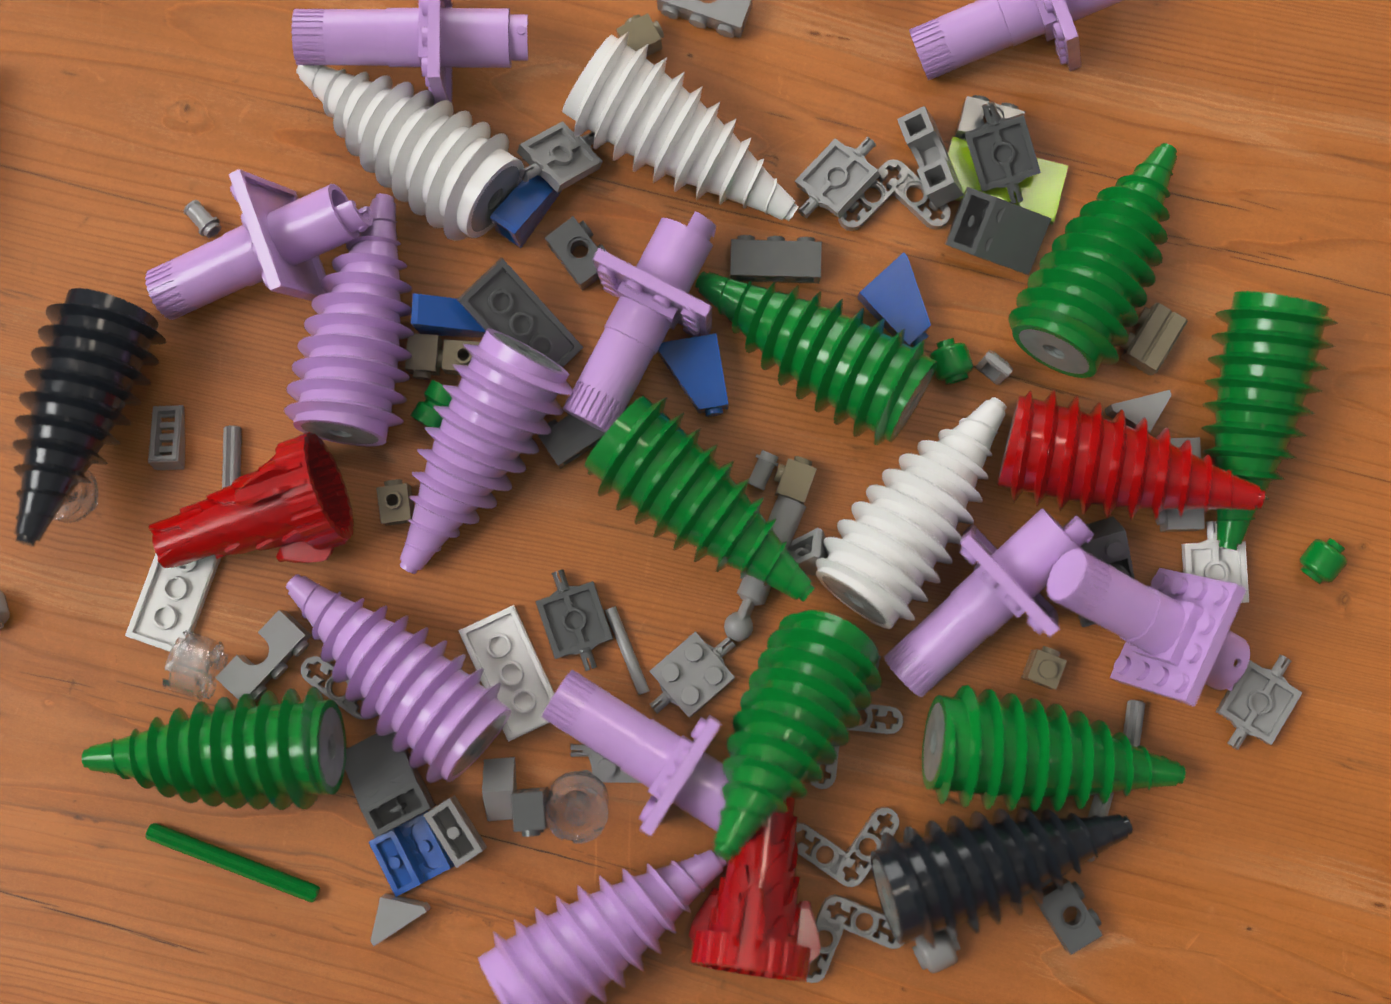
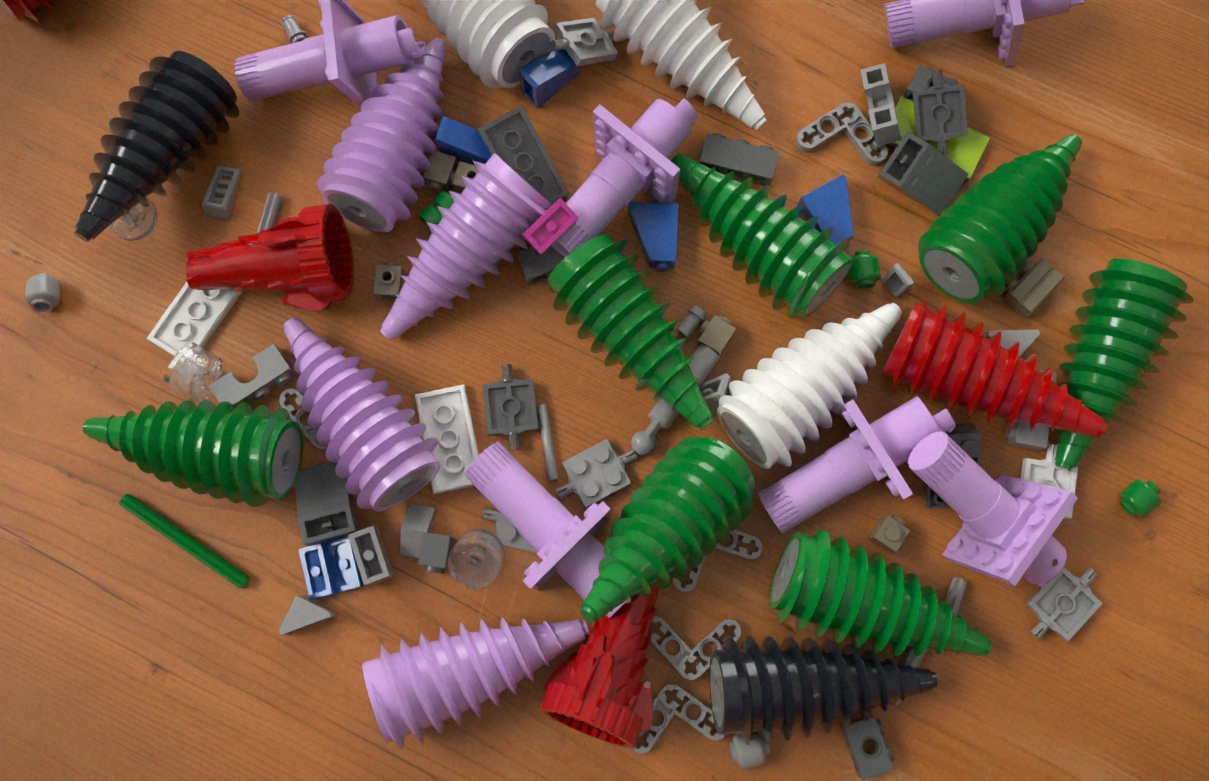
camera: 10 degrees right, 5 degrees down
(563, 242) = (572, 109): dark grey brick -> none
(573, 405) = (550, 226): none -> dark pink plate
(837, 178) = (802, 106): light grey plate -> none

